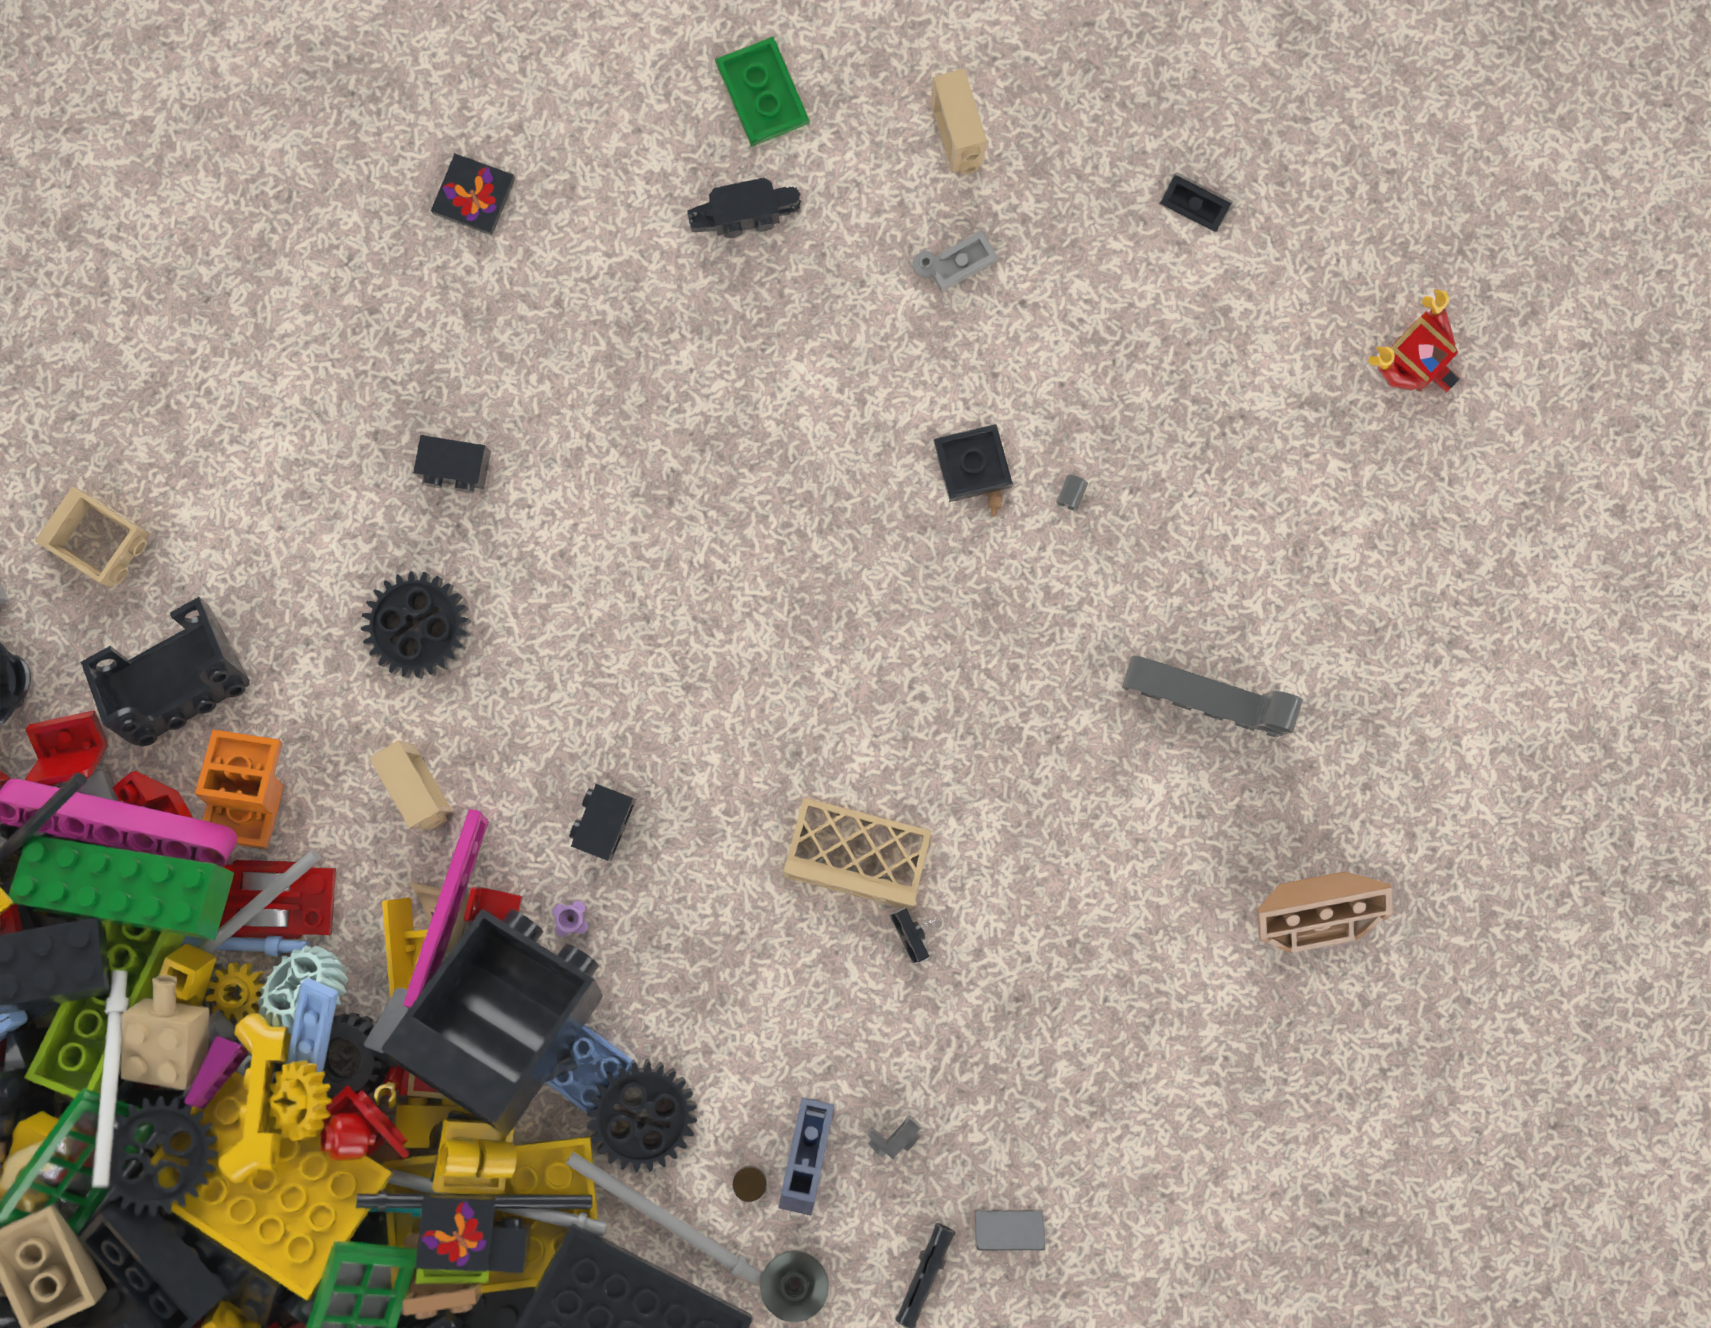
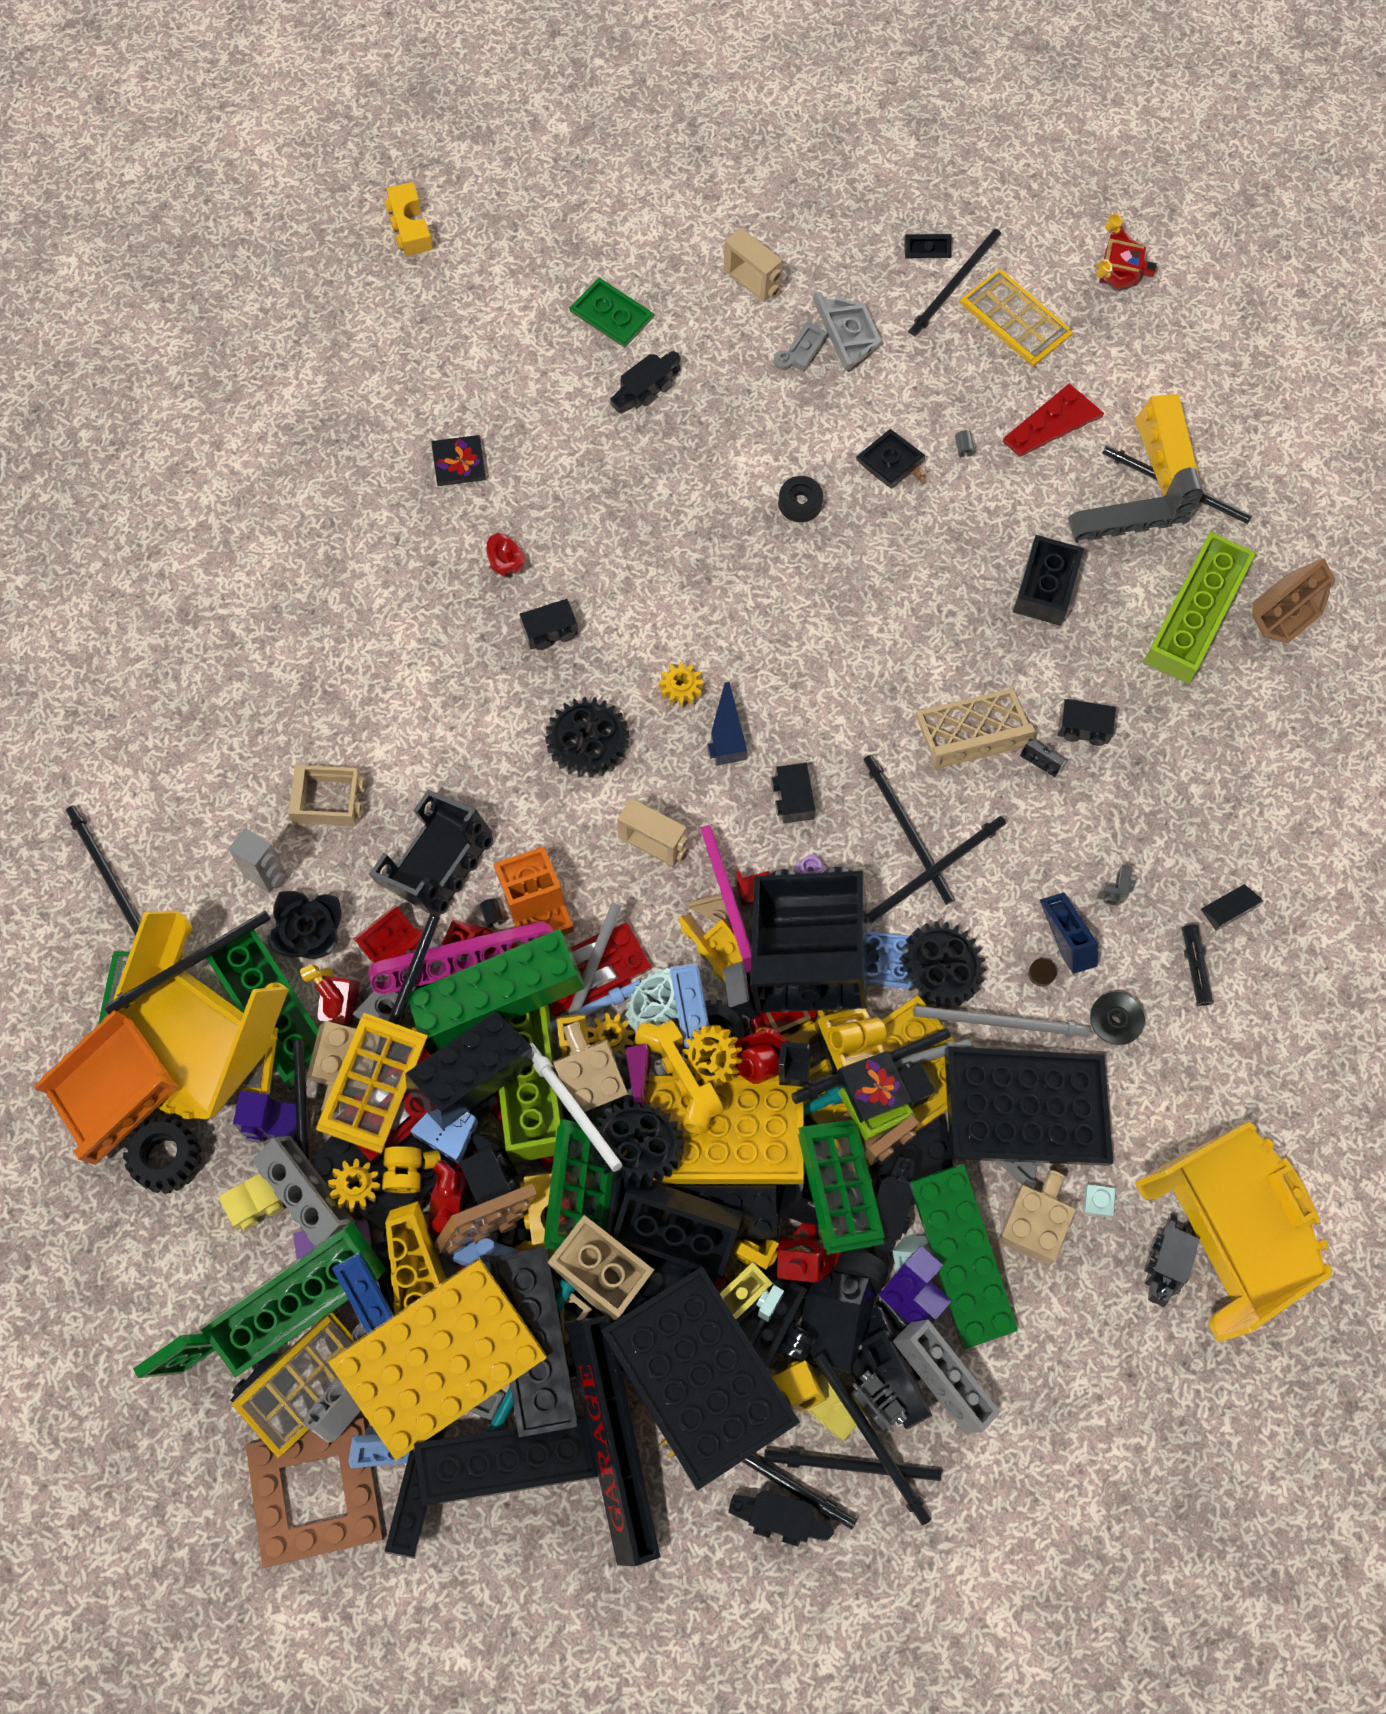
camera: 30 degrees left, 15 degrees down
(192, 774) = (491, 912): none -> black hinge
(380, 1161) = (794, 1064): none -> black panel
(454, 347) = (504, 555): none -> red hat
(562, 607) = (682, 693): none -> yellow gear
(572, 705) = (727, 738): none -> dark blue slope
(707, 933) = (877, 773): none -> black bar
(789, 989) = (988, 831): none -> black bar
(826, 442) = (800, 486): none -> black tyre
(986, 922) = (1086, 722): none -> black brick
(1026, 266) = (848, 328): none -> light grey wing
(1053, 725) = (1048, 580): none -> black brick
(1124, 300) = (921, 321): none -> black bar
(1206, 516) = (1053, 420): none -> red wing
(1210, 857) = (1199, 607): none -> lime brick
(1242, 356) = (1016, 317): none -> clear piece
(1248, 610) = (1120, 456): none -> black bar
(1307, 632) = (1165, 437): none -> yellow wedge

